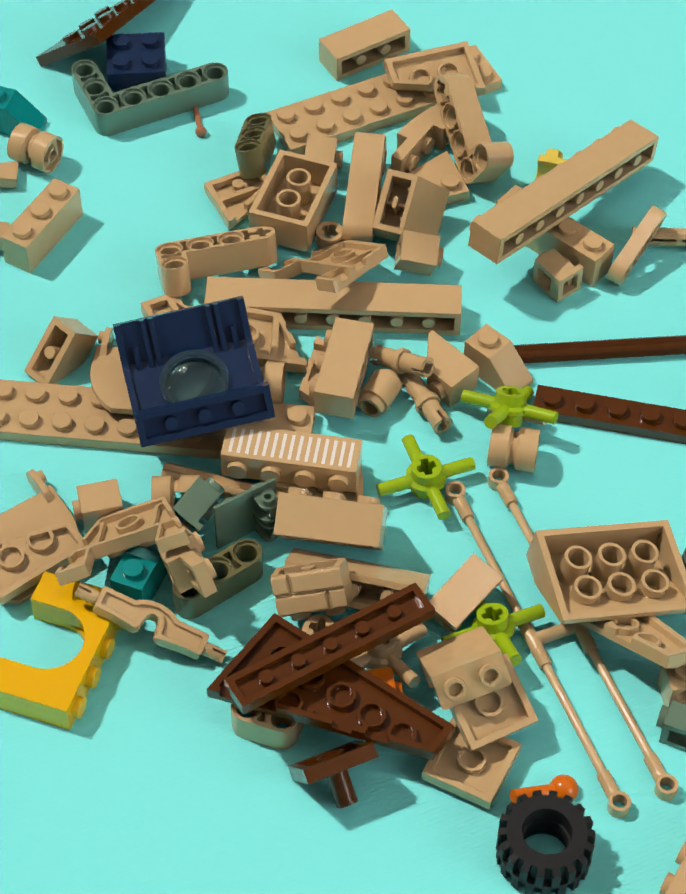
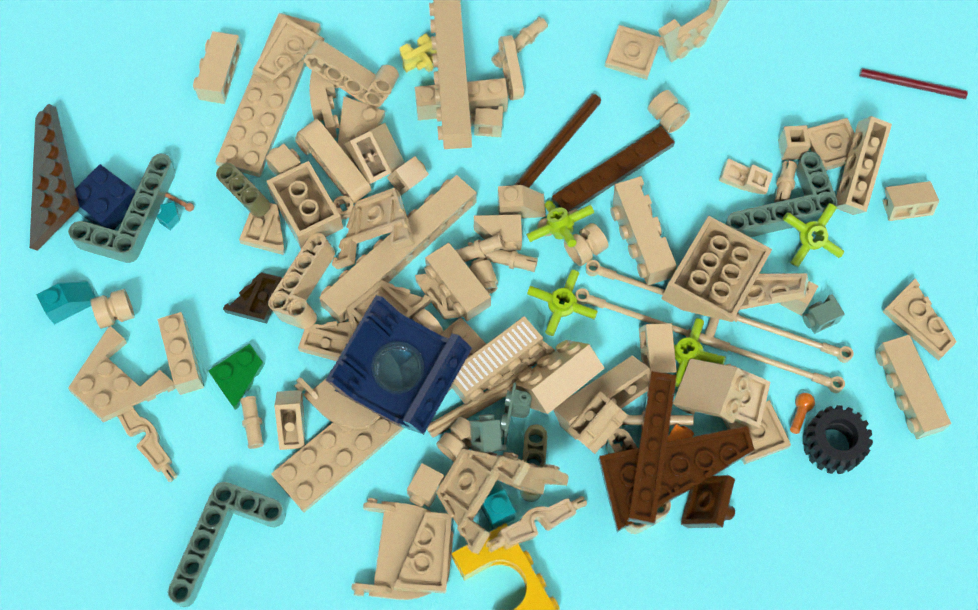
camera: 50 degrees left, 15 degrees up
(28, 327) = (252, 422): none -> tan pin
(68, 284) = (237, 374): none -> green wing
(146, 240) = (254, 299): none -> dark brown wing
(175, 122) = (169, 215): none -> teal piece
(586, 473) = (642, 232): none -> tan wedge

